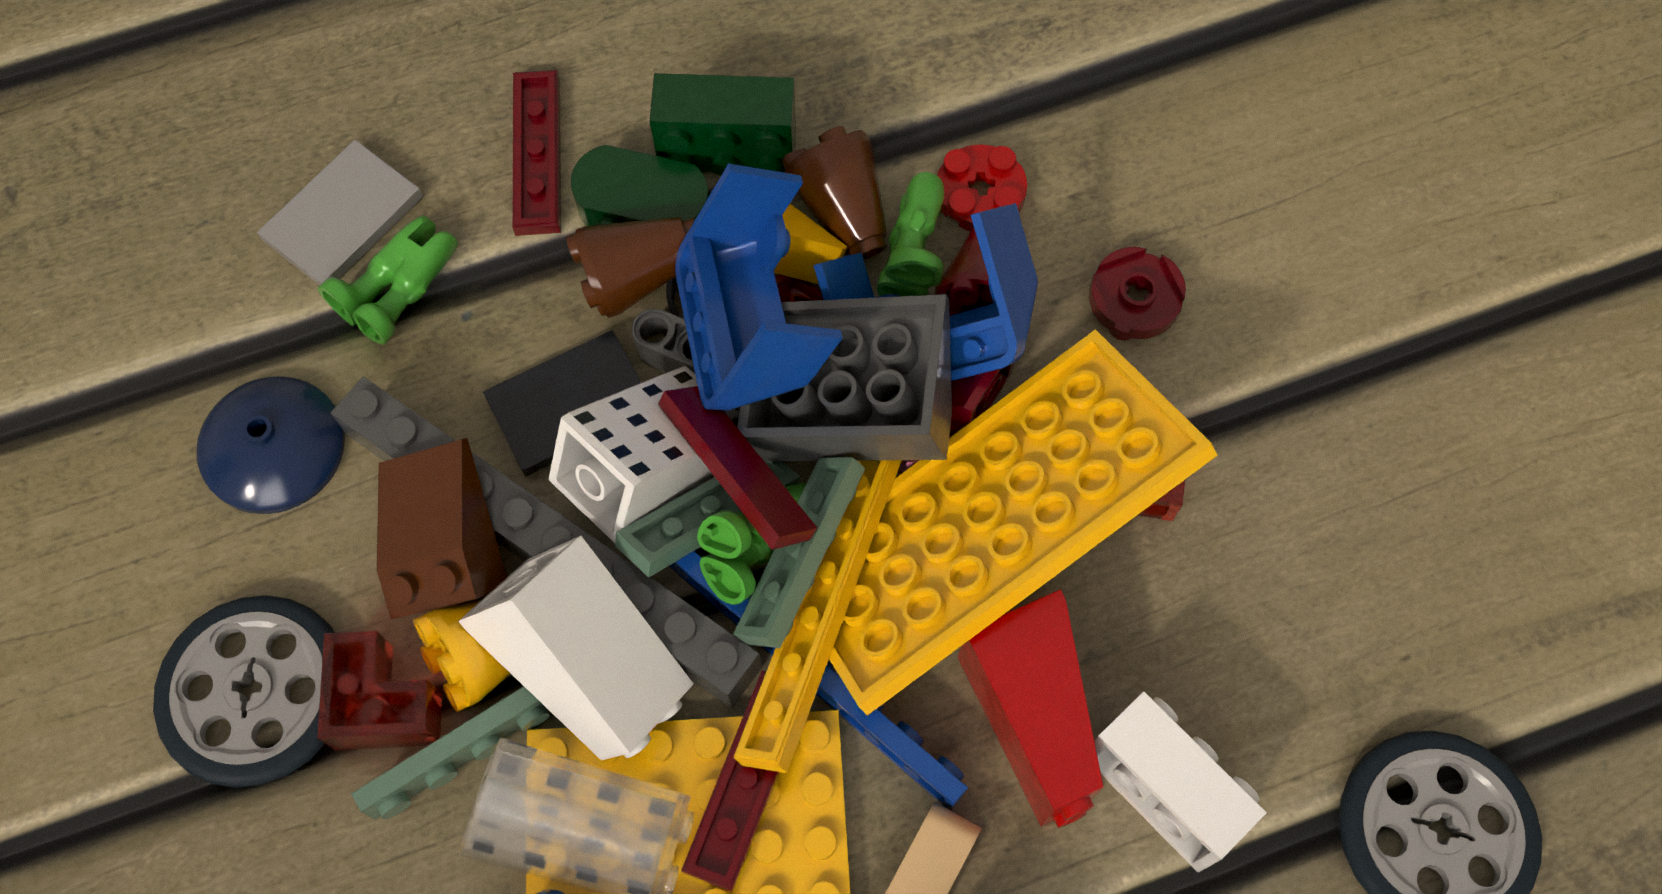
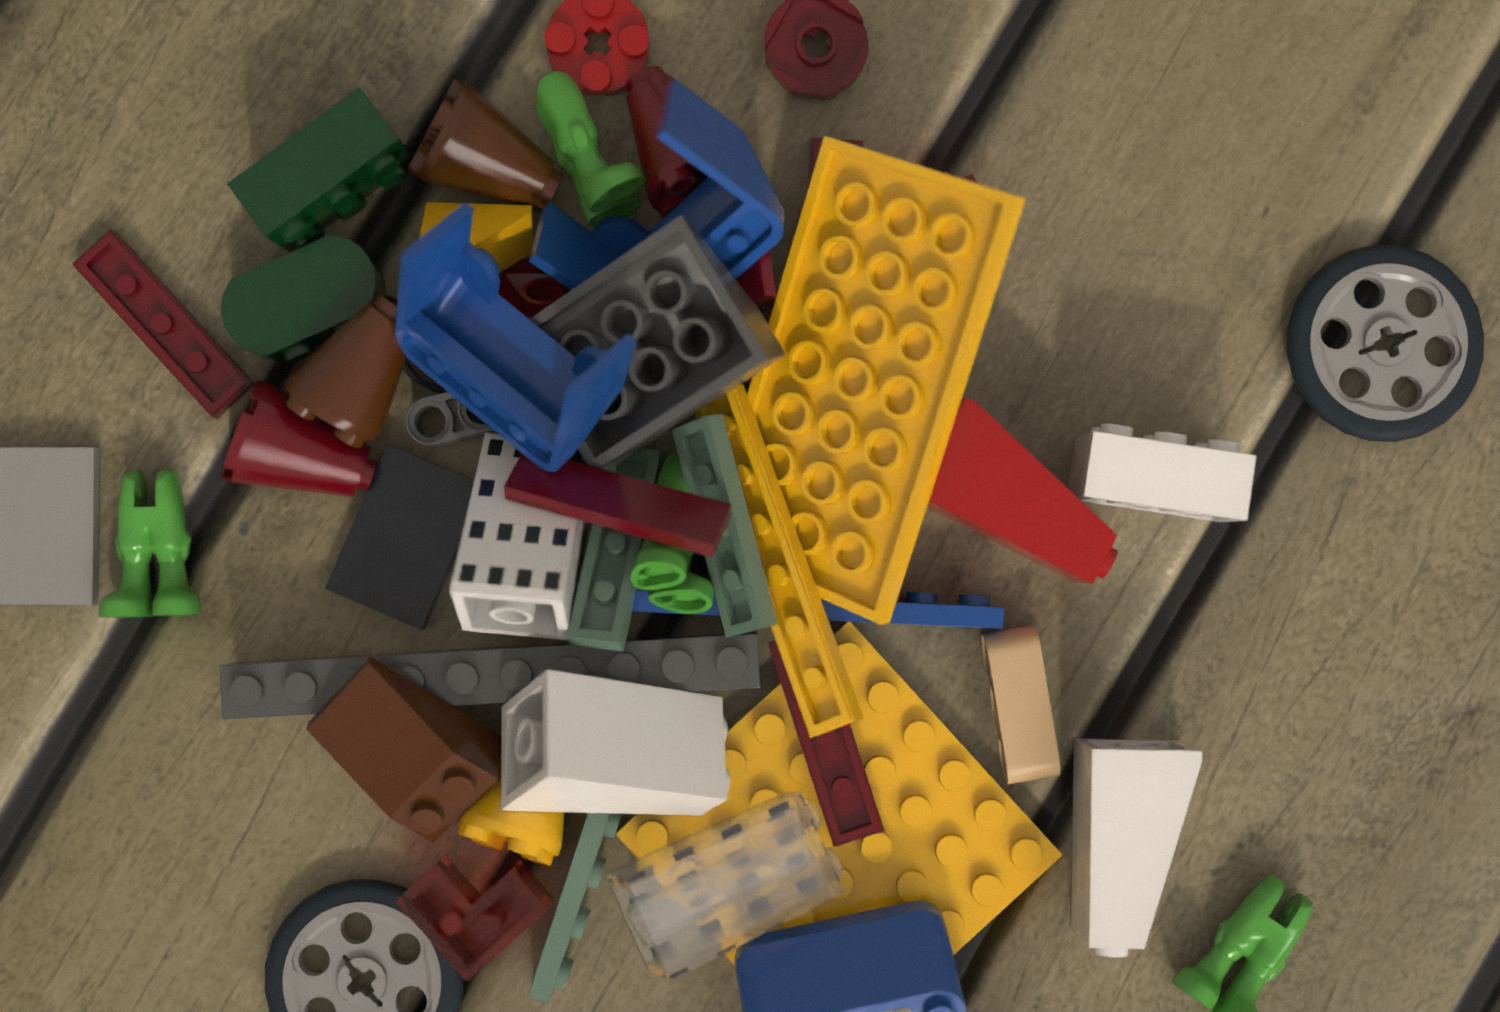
camera: 40 degrees left, 20 degrees up
(282, 465) = (216, 770): dark blue dish -> none
(544, 280) = (291, 452): none -> dark red cone

